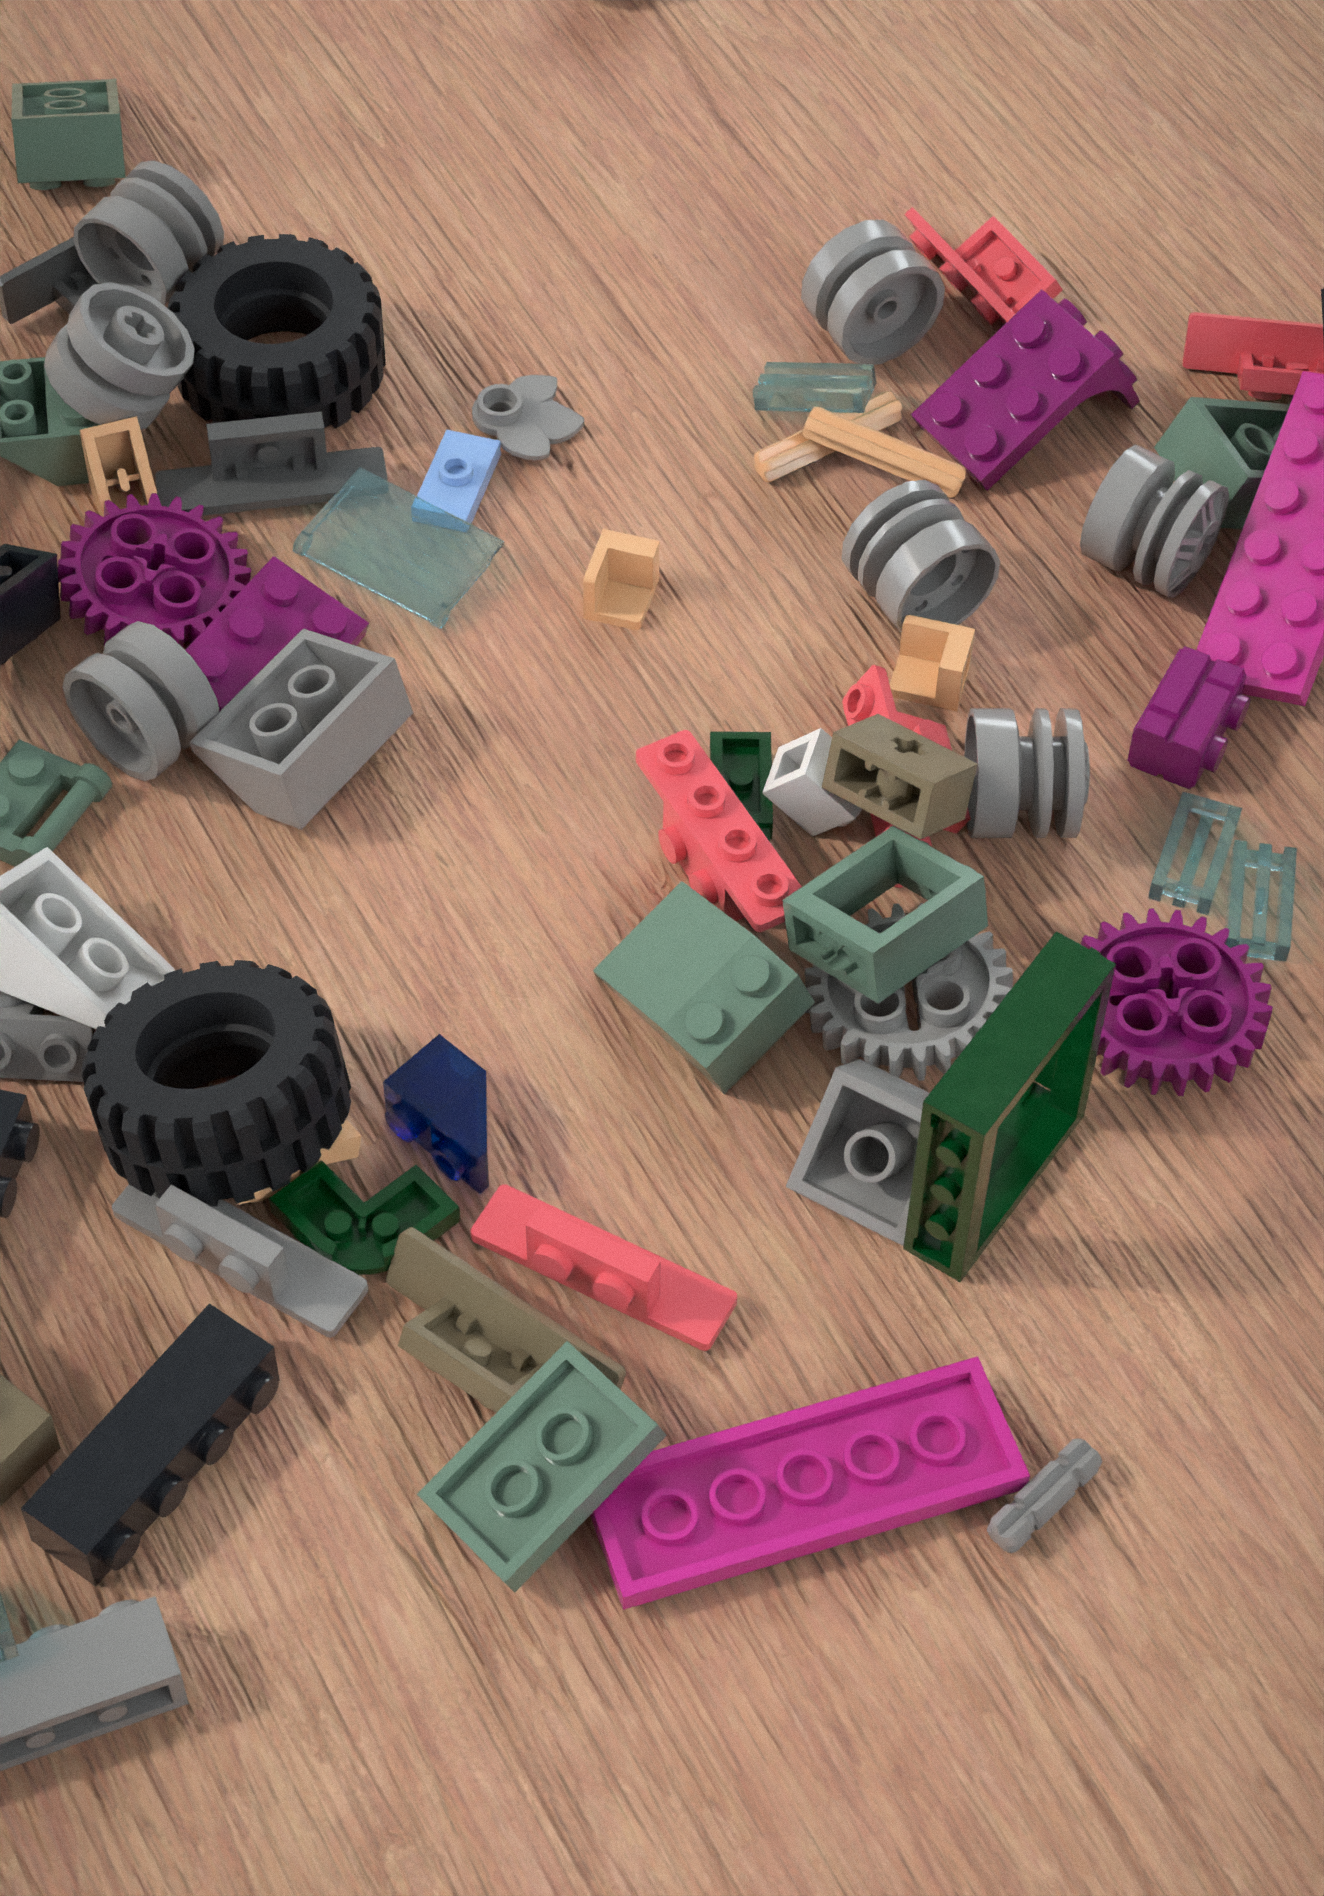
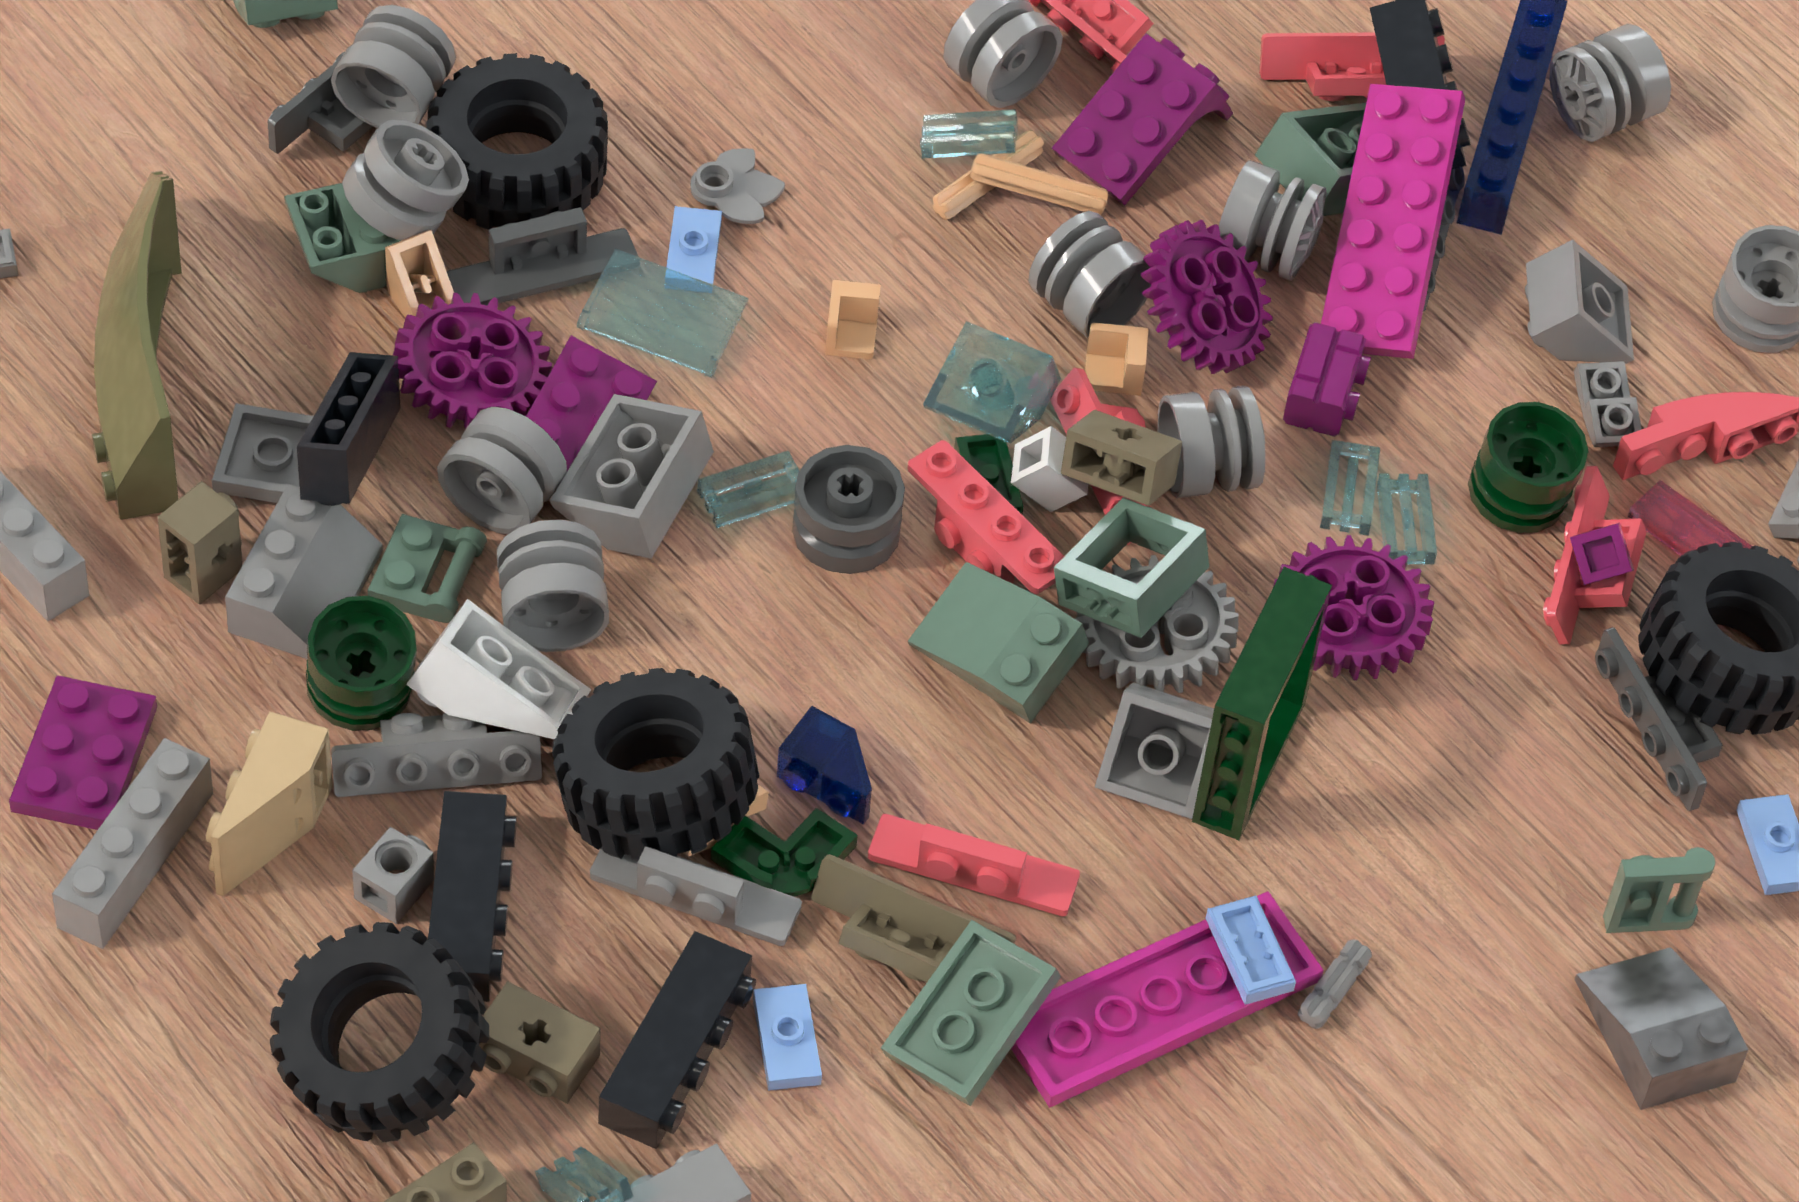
camera: 15 degrees left, 0 degrees up
(161, 844) = (553, 584): none -> light grey wheel
(303, 1461) = (787, 1037): none -> light blue plate
(452, 771) = (756, 495): none -> clear light blue tile
(554, 799) = (848, 509): none -> dark grey wheel
(770, 673) = (993, 384): none -> clear light blue slope
(933, 1435) = (1250, 950): none -> light blue plate
(1054, 600) = (1206, 297): none -> magenta gear

